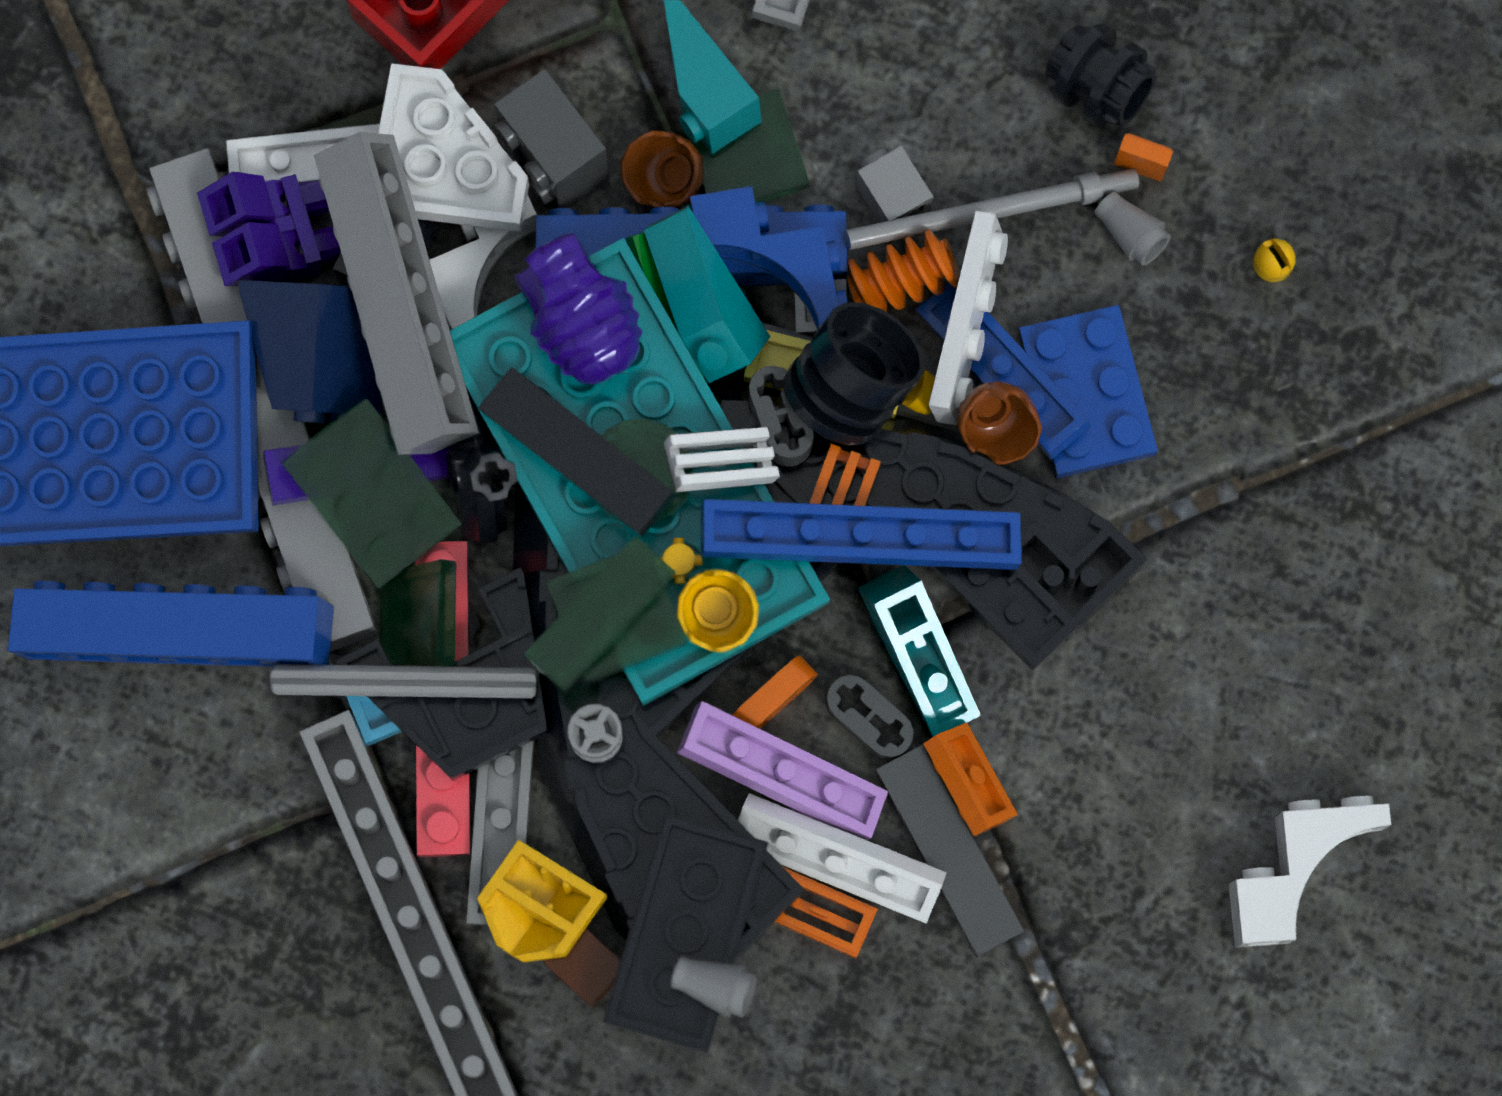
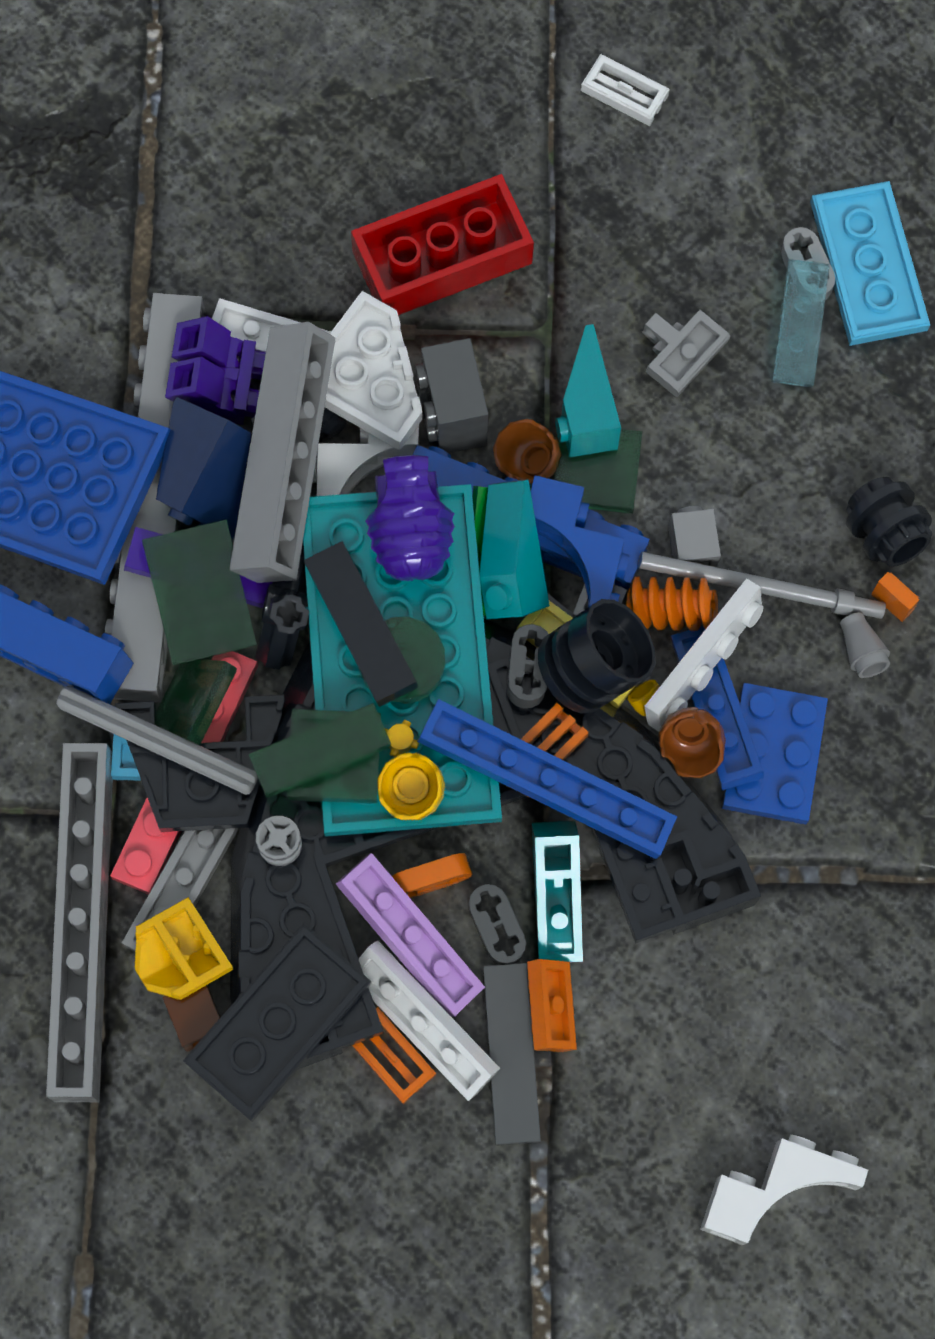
camera: 25 degrees right, 5 degrees down
(717, 985) = (280, 1072): light grey cone -> none
(719, 440) = (466, 659): white tile -> none

